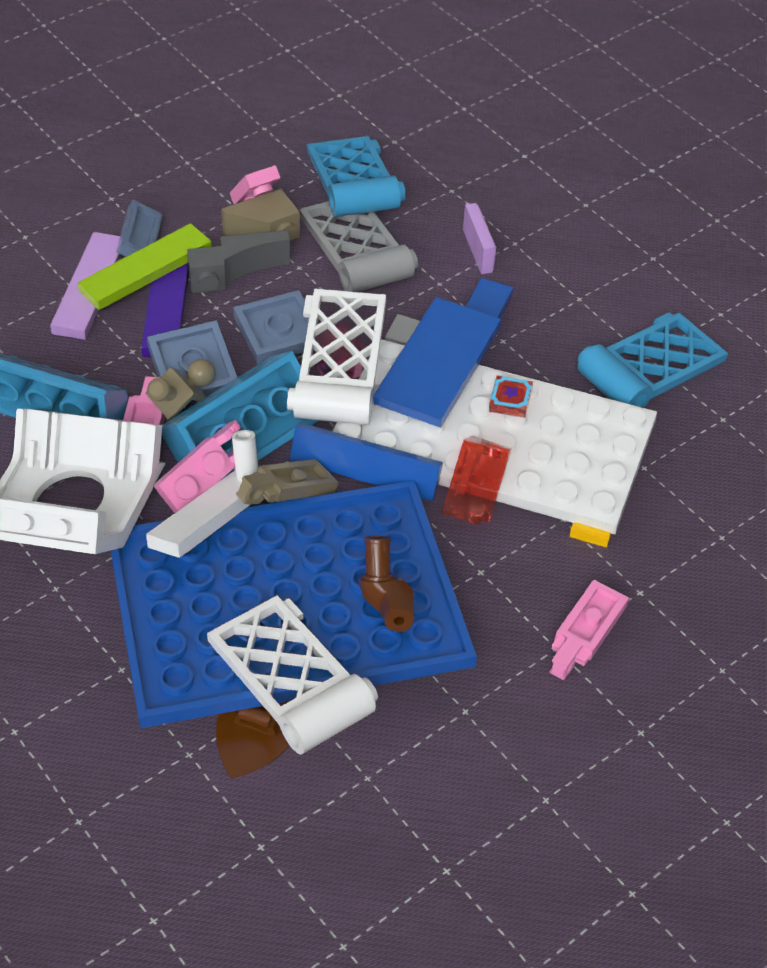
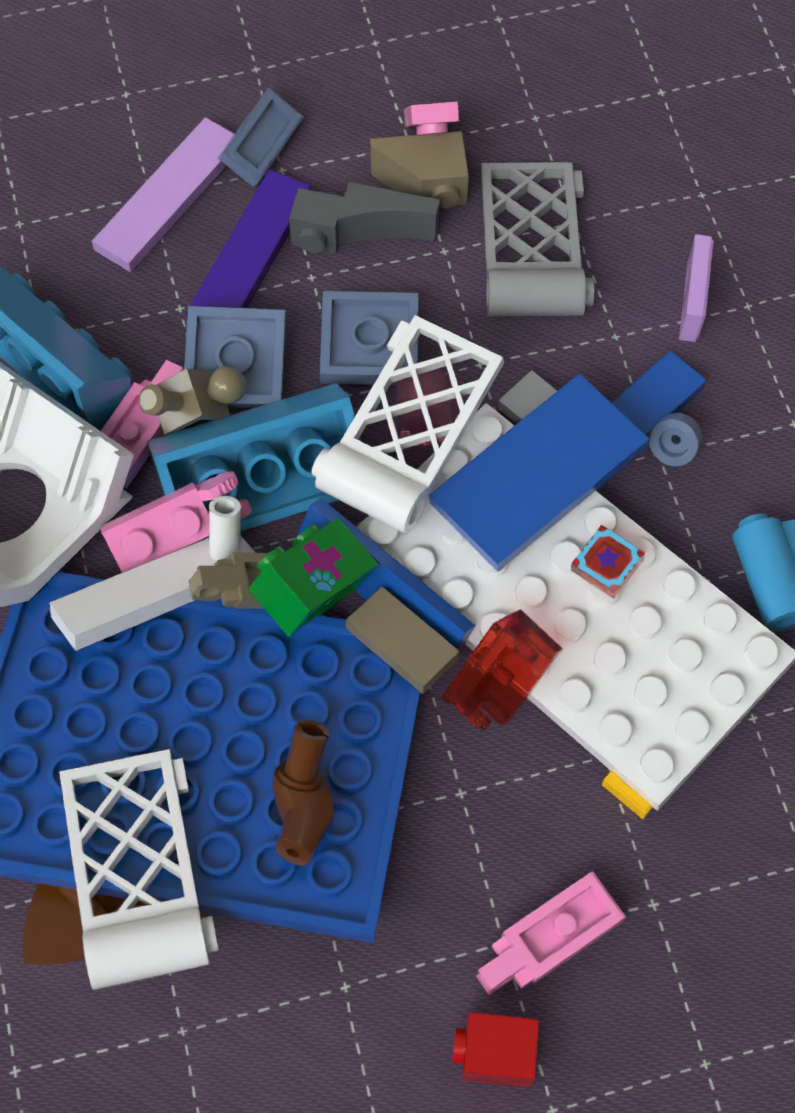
camera: 25 degrees right, 15 degrees up
(142, 267) = (239, 192): lime tile -> none
(319, 463) = (311, 575): none -> green brick
(356, 192) = (568, 169): dark azure piece -> none
(398, 486) = (402, 640): none -> dark tan tile
(519, 330) = (676, 439): none -> sand blue tile
(589, 702) = (497, 1049): none -> red brick

